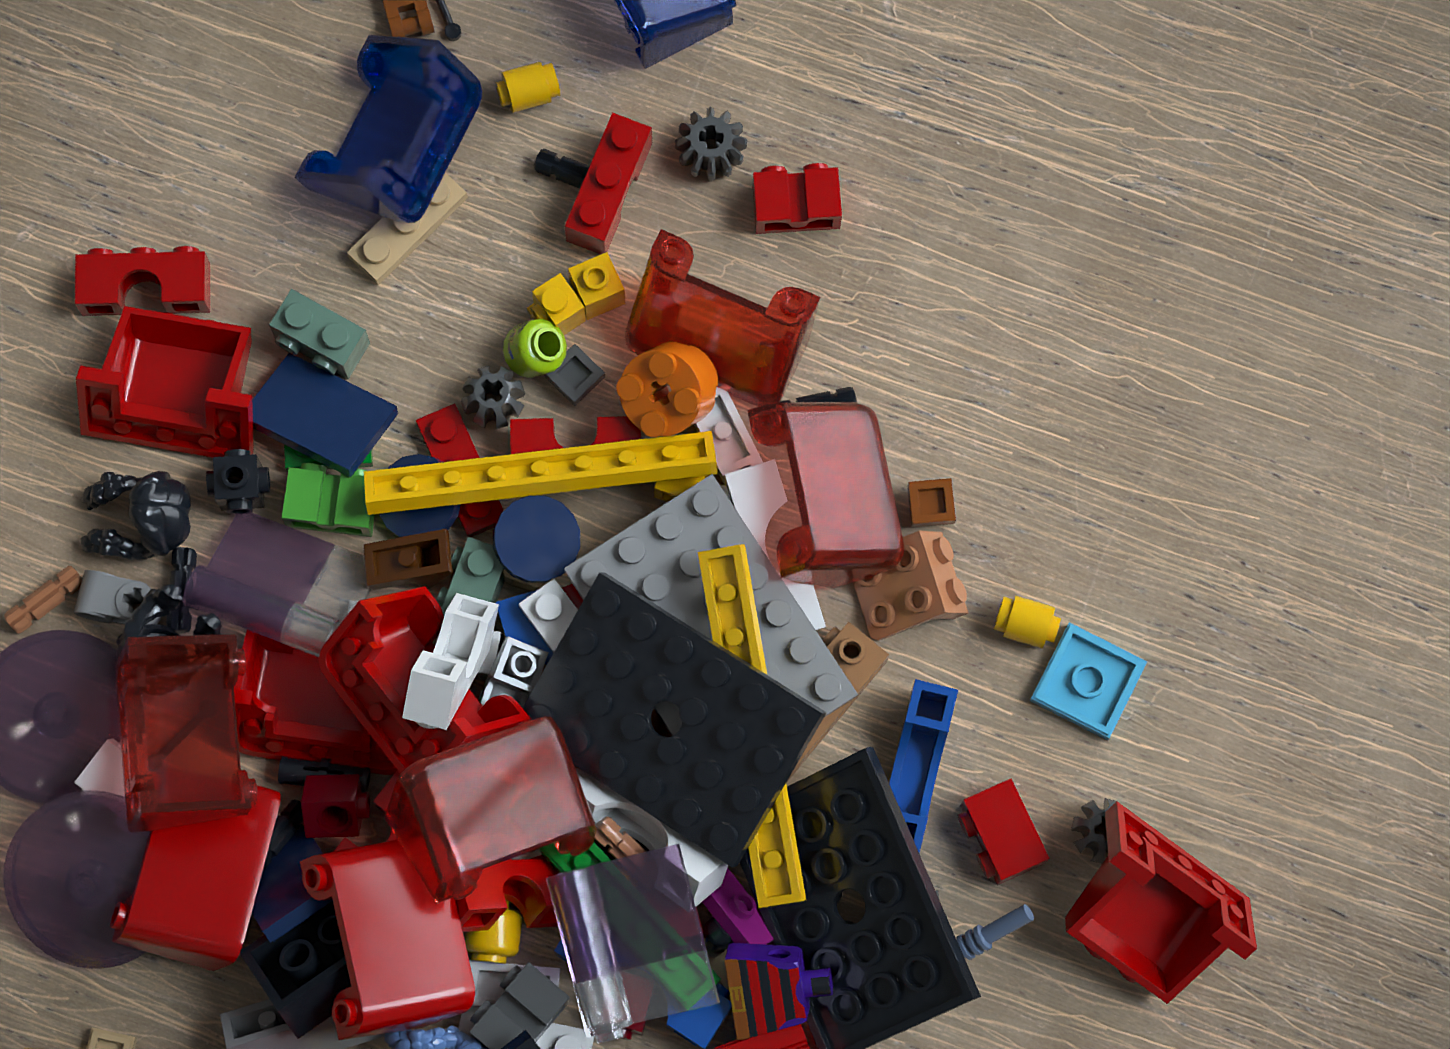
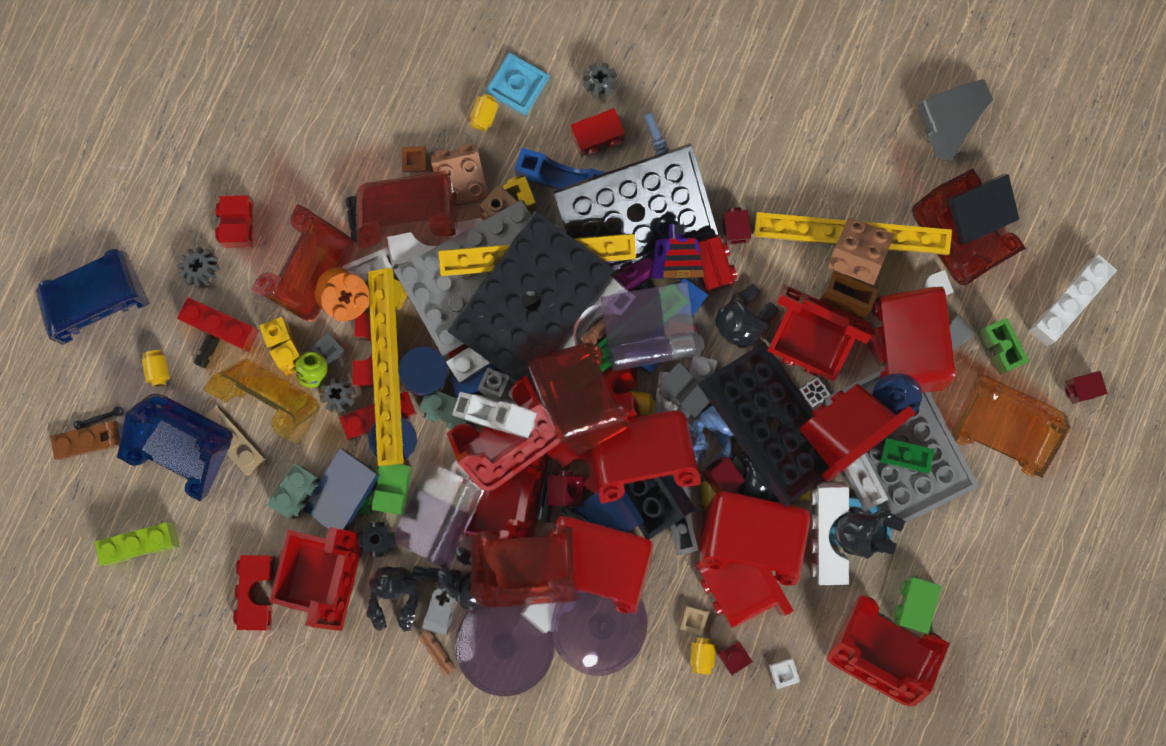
camera: 80 degrees left, 5 degrees up
(221, 81) = (136, 543): none -> lime arch
(408, 559) = (429, 443): reddish brown slope -> none
(476, 311) = (294, 407): none -> clear yellow windscreen
(878, 706) = (525, 194): none -> yellow bracket
(1158, 910) = (646, 52): red windscreen -> none

